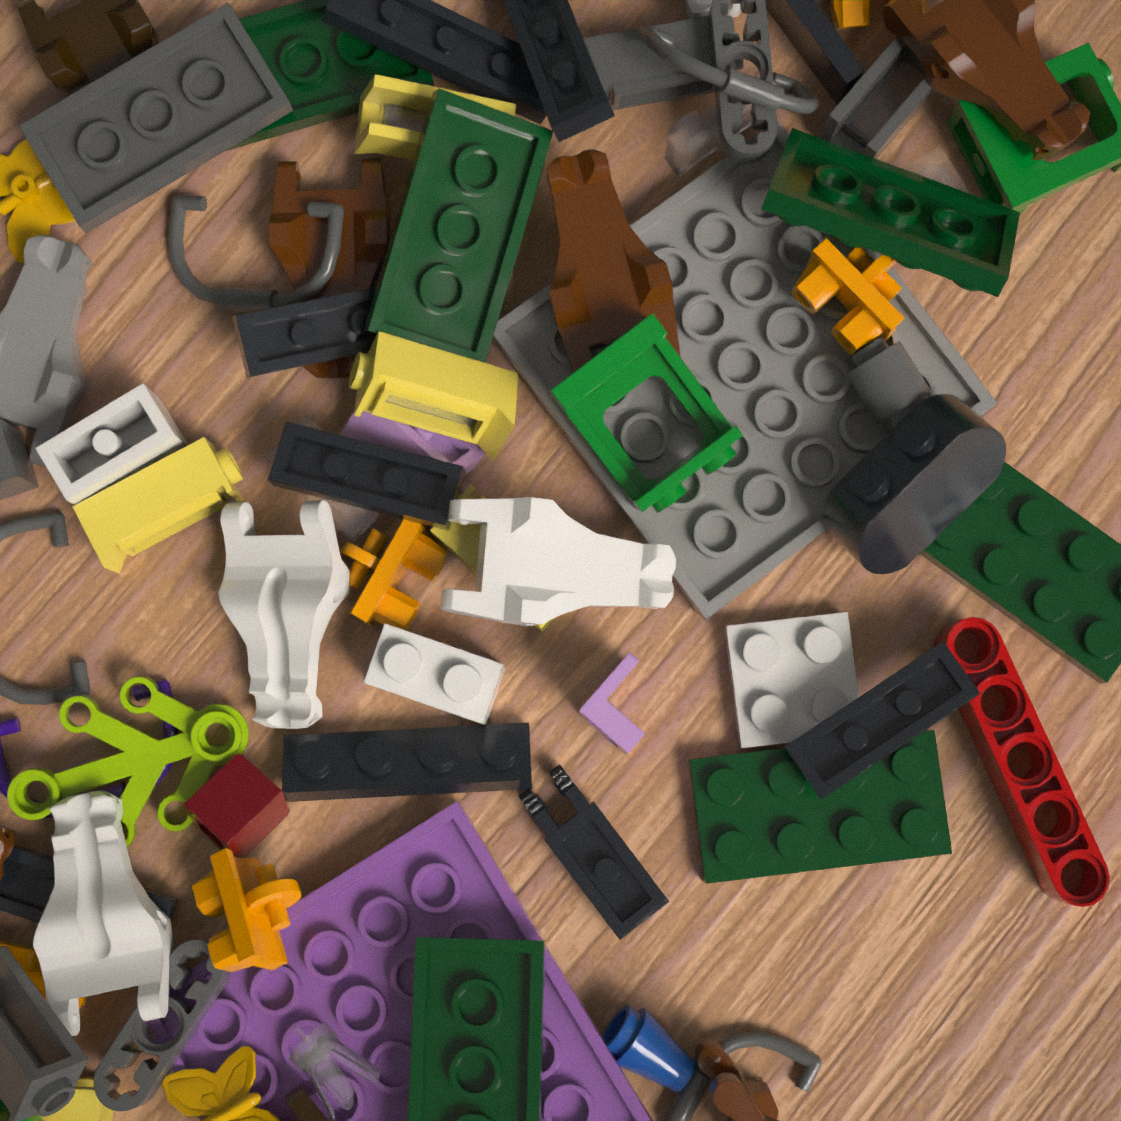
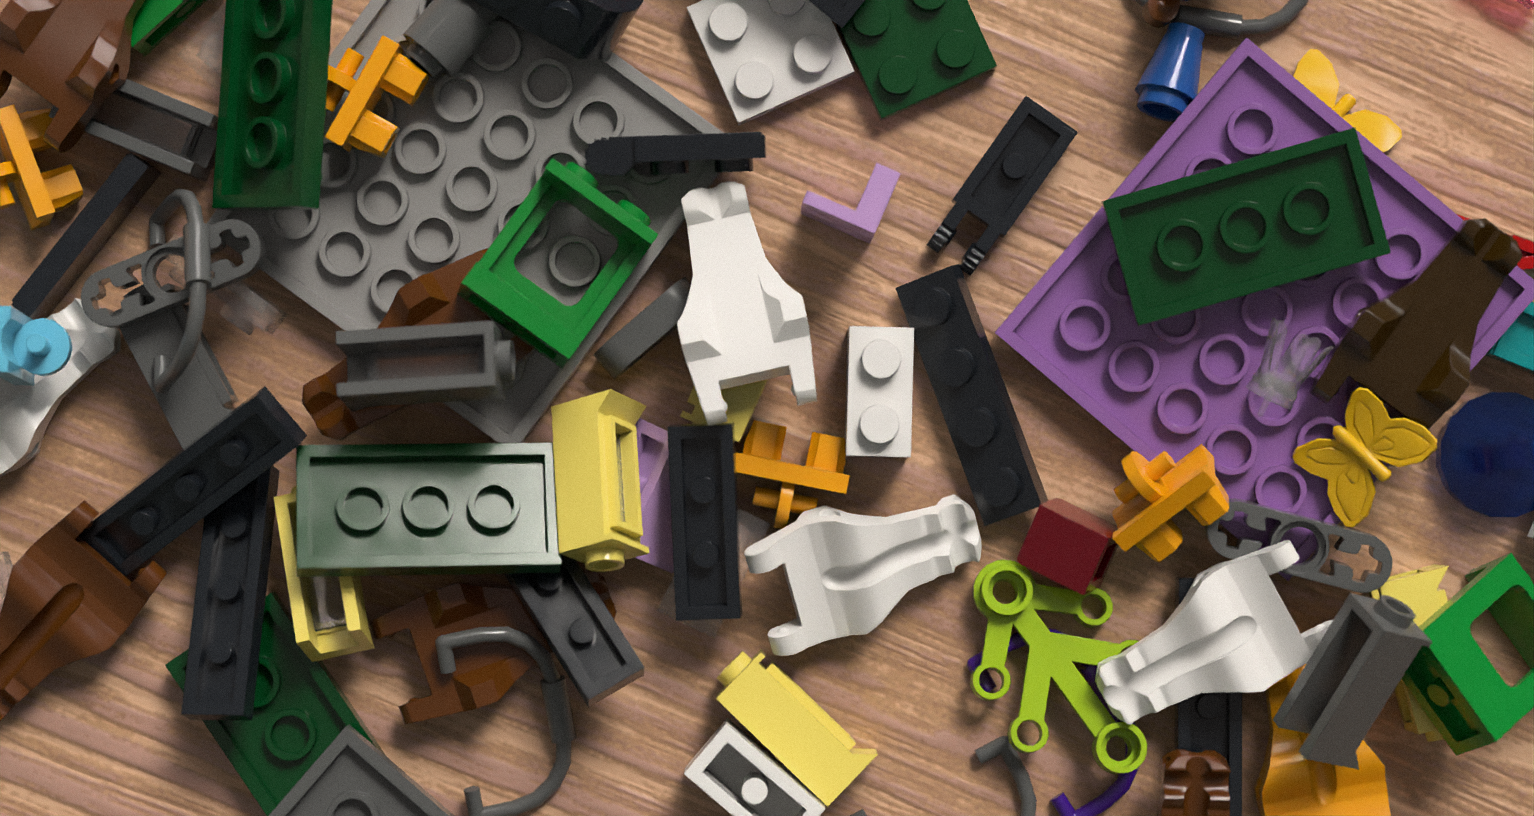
camera: 110 degrees left, 5 degrees up
(561, 478) = (644, 330): none -> dark grey beam
(587, 261) = (425, 364): none -> dark grey window
(715, 552) = (672, 152): none -> black hinge

